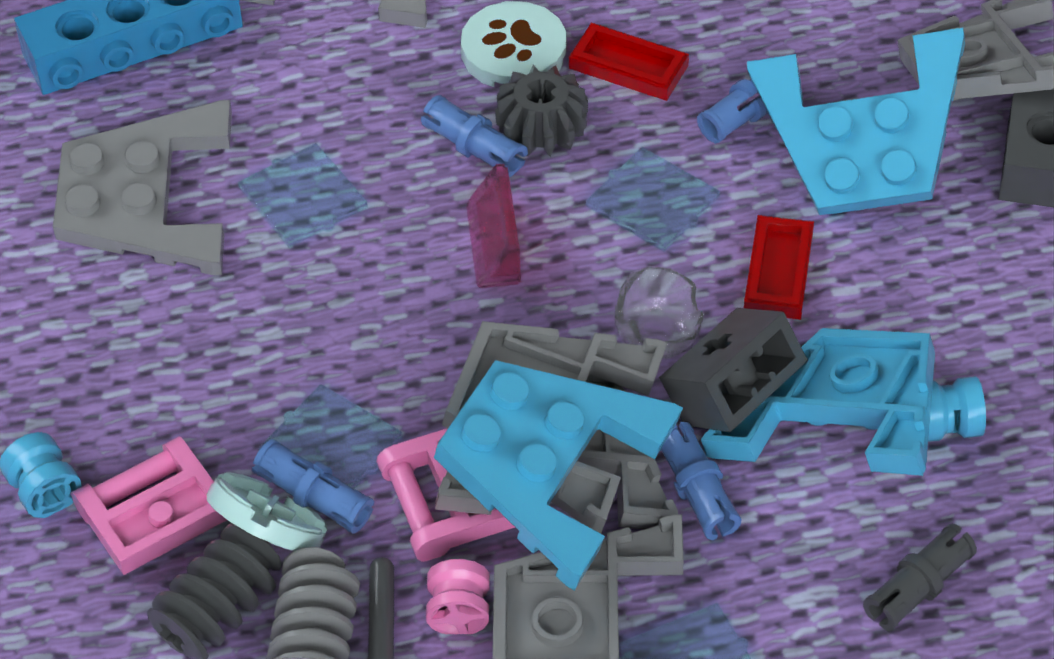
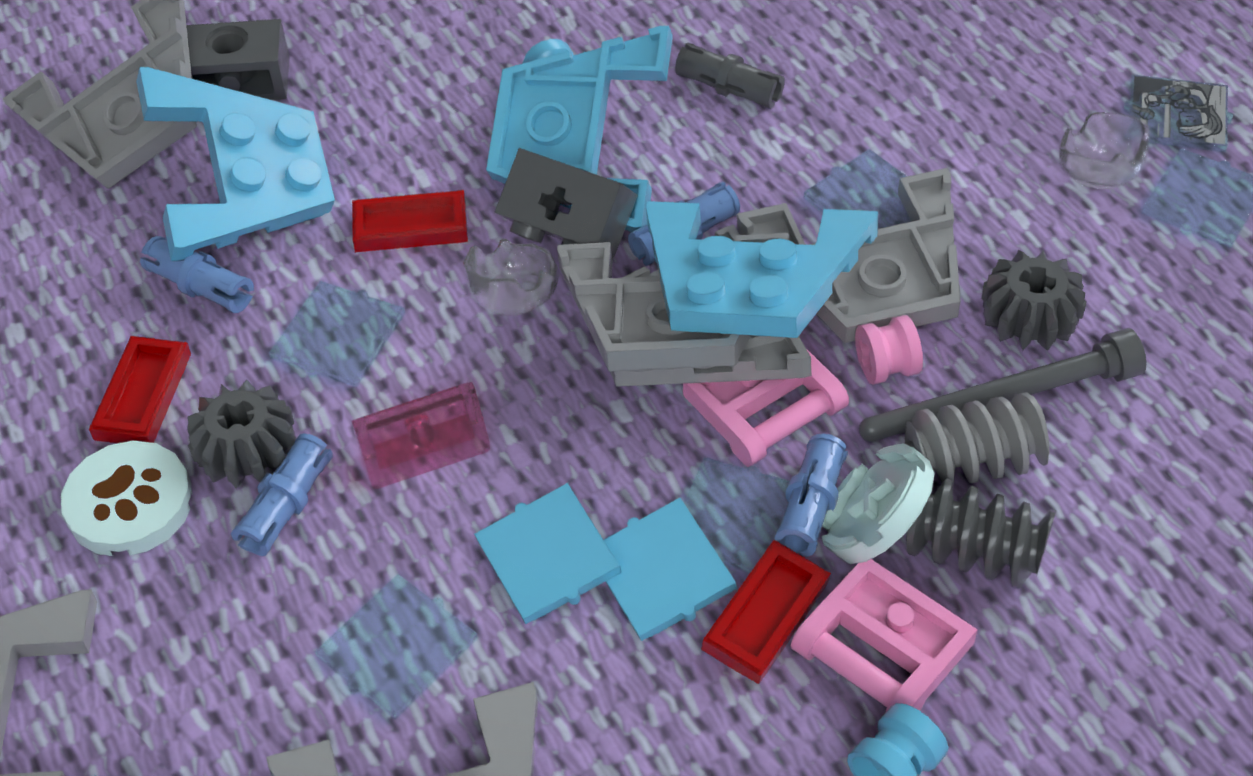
camera: 105 degrees left, 0 degrees up
(214, 428) = (765, 611): none -> red tile
(295, 373) = (665, 569): none -> medium azure piece
(345, 300) = (547, 553): none -> medium azure piece

